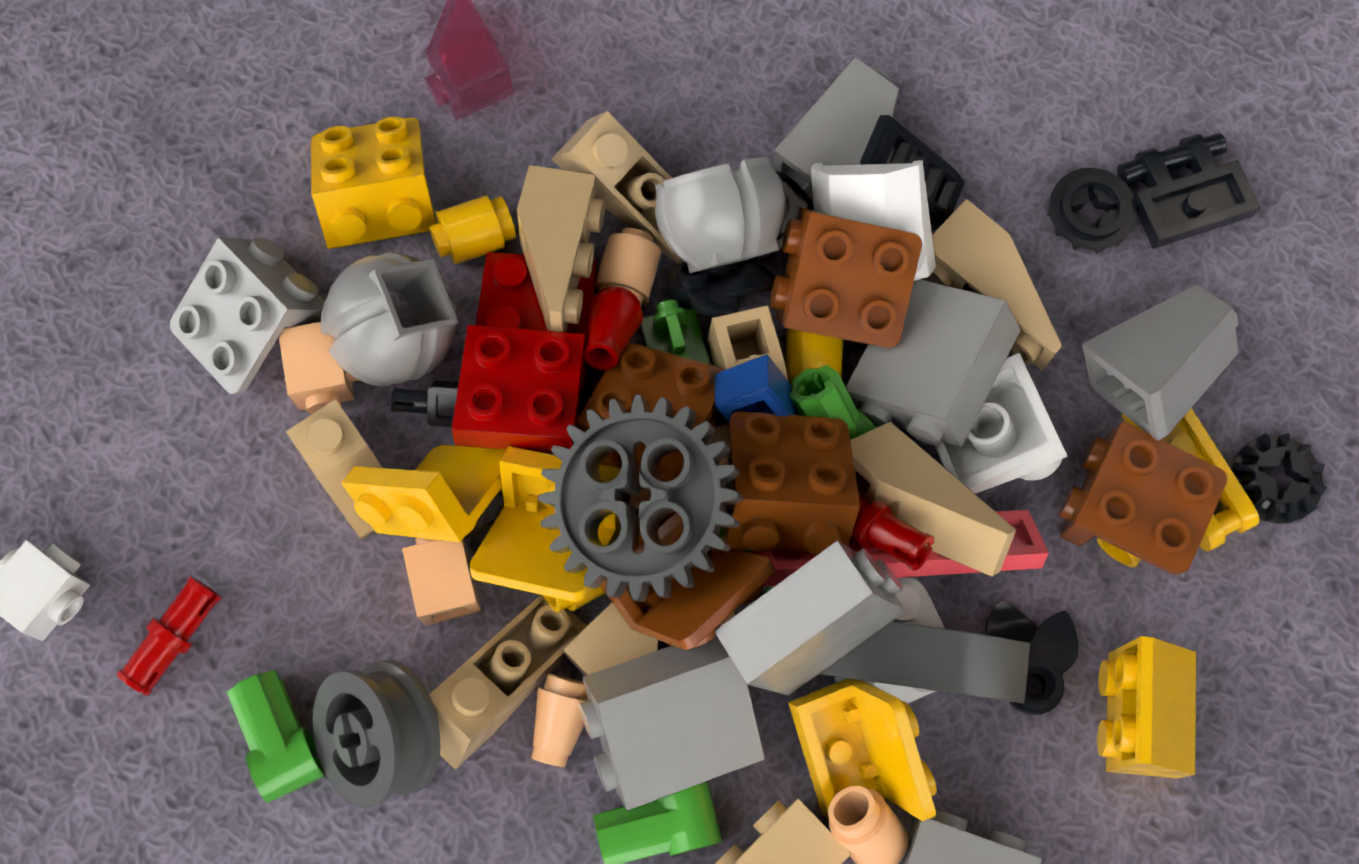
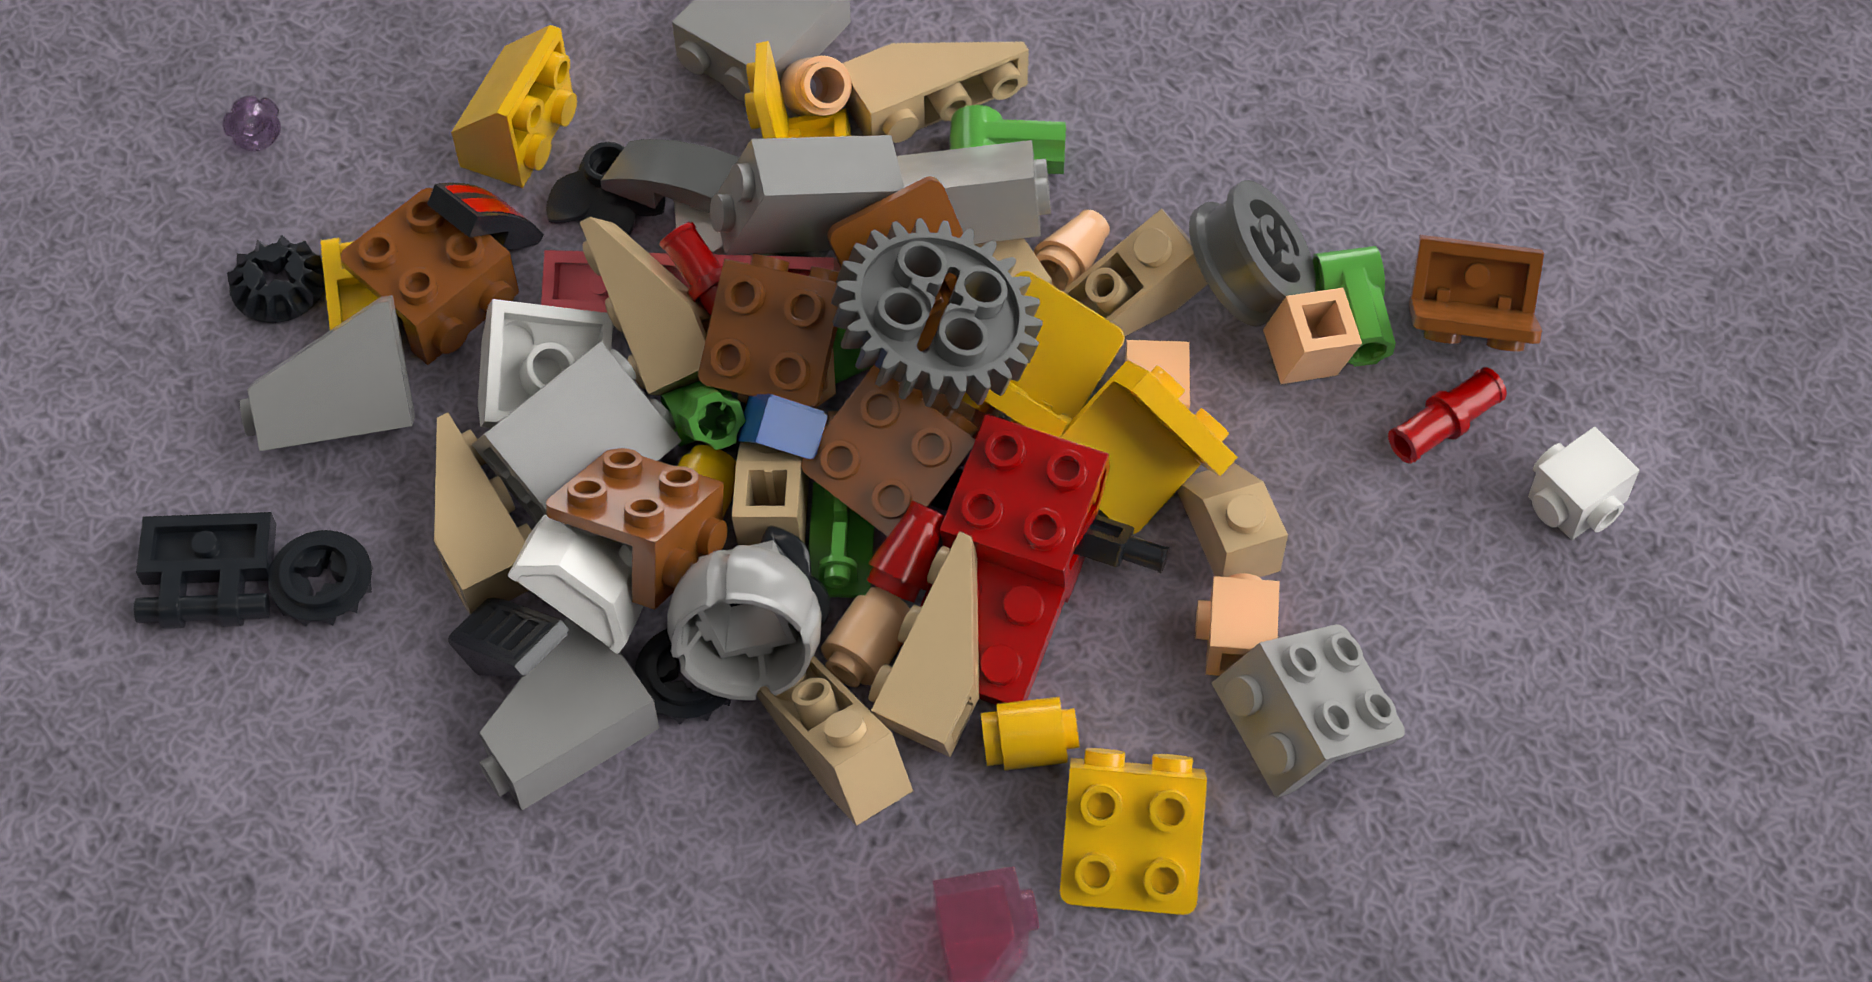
camera: 160 degrees left, 15 degrees down
(152, 754) = (1476, 292): none -> dark orange bracket
(298, 662) = (1312, 335): none -> light nougat brick
(368, 330) = (1156, 648): light grey piece -> none
(1119, 568) = (483, 213): none -> black slope

